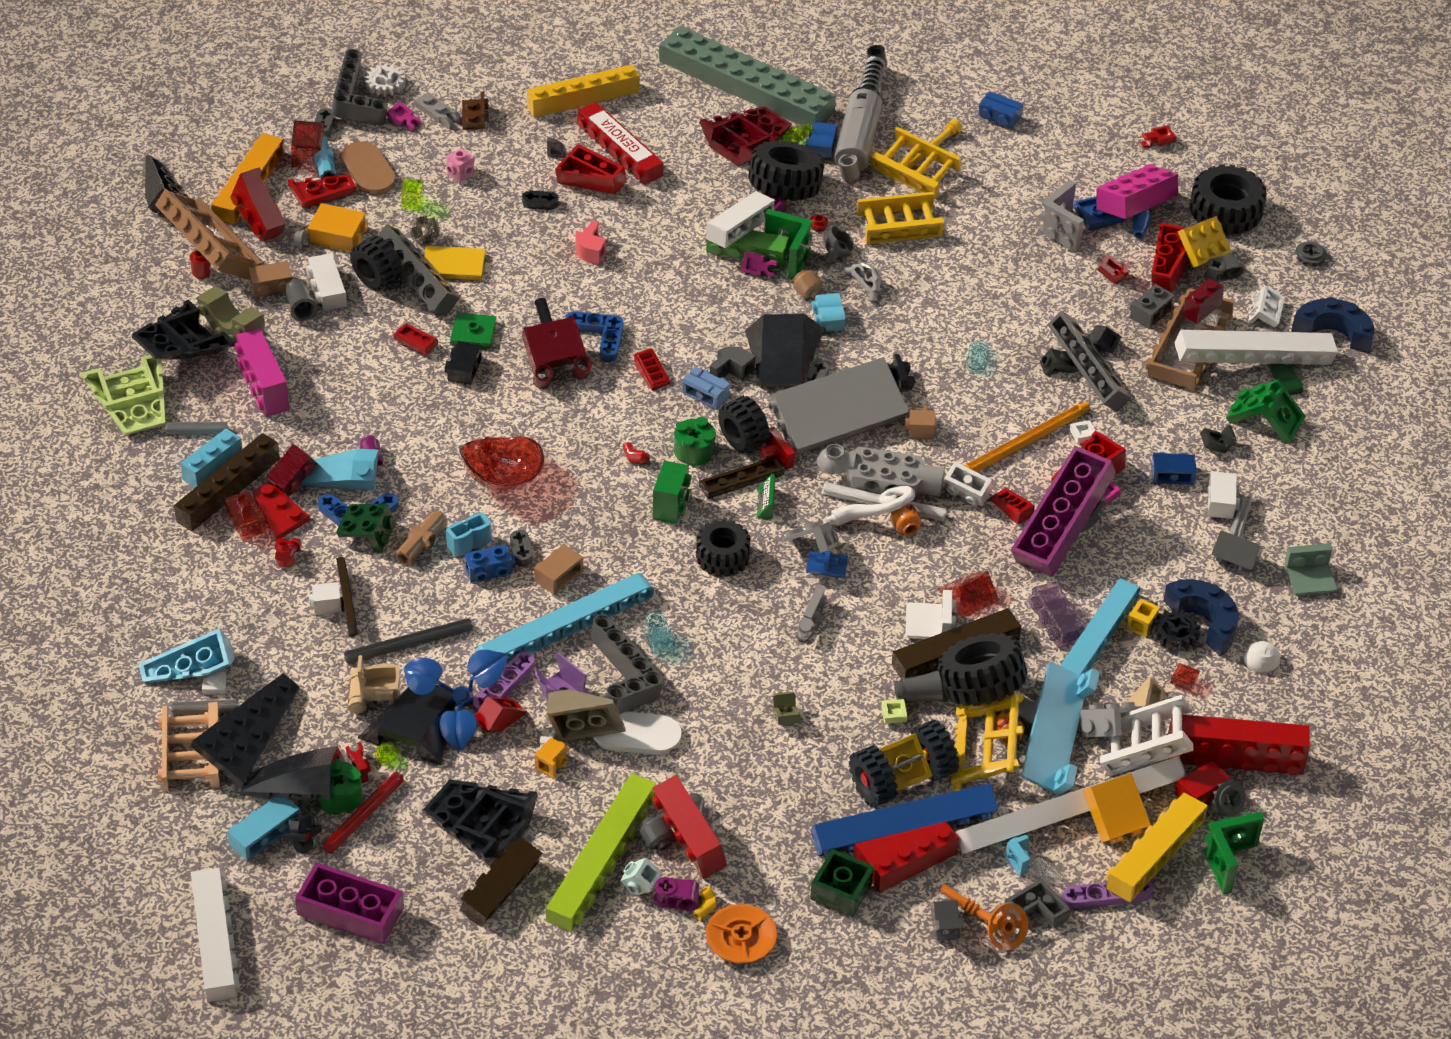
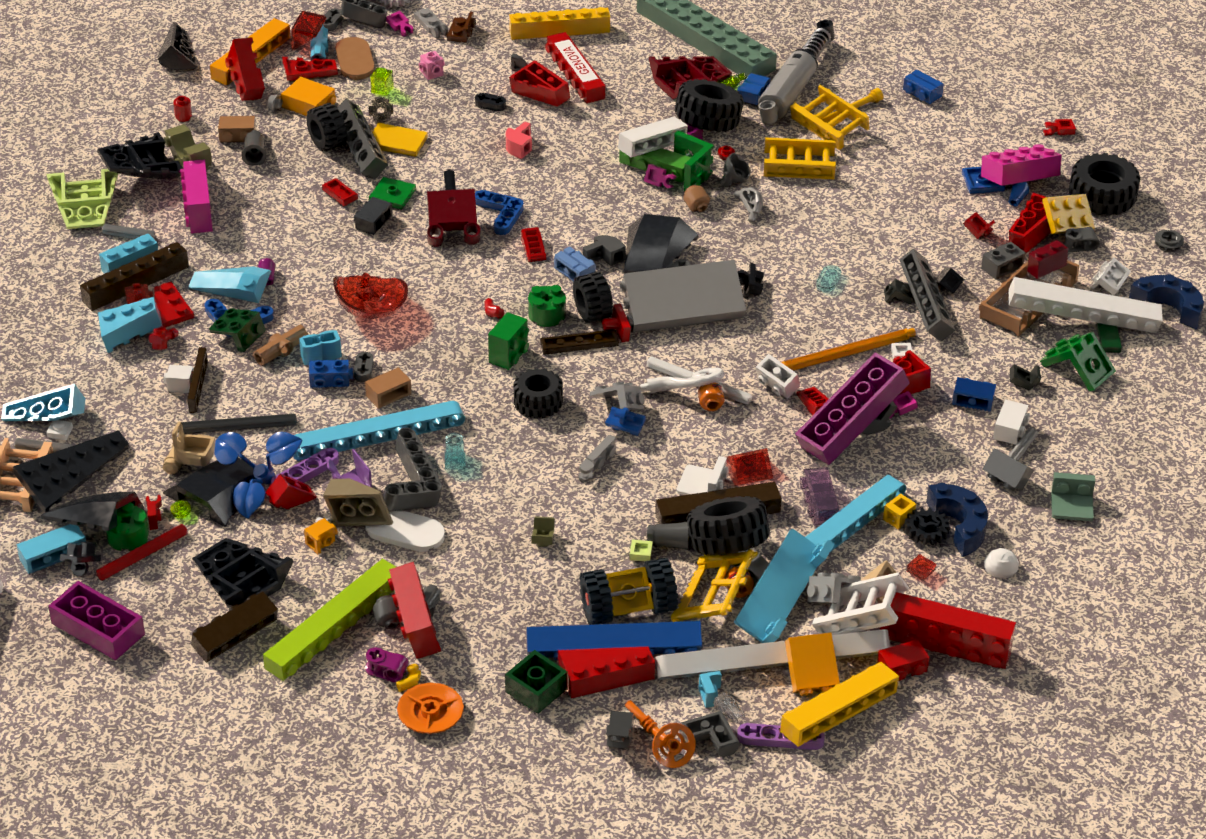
camera: 15 degrees right, 5 degrees down
(208, 234) = (195, 85): medium nougat window -> none
(244, 540) = (128, 321): none -> medium azure wedge
(292, 470) = (191, 274): dark red brick -> none
(326, 282) = (282, 137): white brick -> none
(640, 876) = (357, 644): light aqua brick -> none
(766, 498) = (595, 361): green slope -> none
(829, 311) = (707, 223): medium azure brick -> none
(881, 470) = (699, 352): light grey brick -> none
(920, 423) = (755, 322): medium nougat brick -> none
(1058, 213) = (944, 180): light grey bracket -> none
(1227, 837) = (902, 710): green bracket -> none
(1236, 799) = (931, 678): dark grey gear -> none

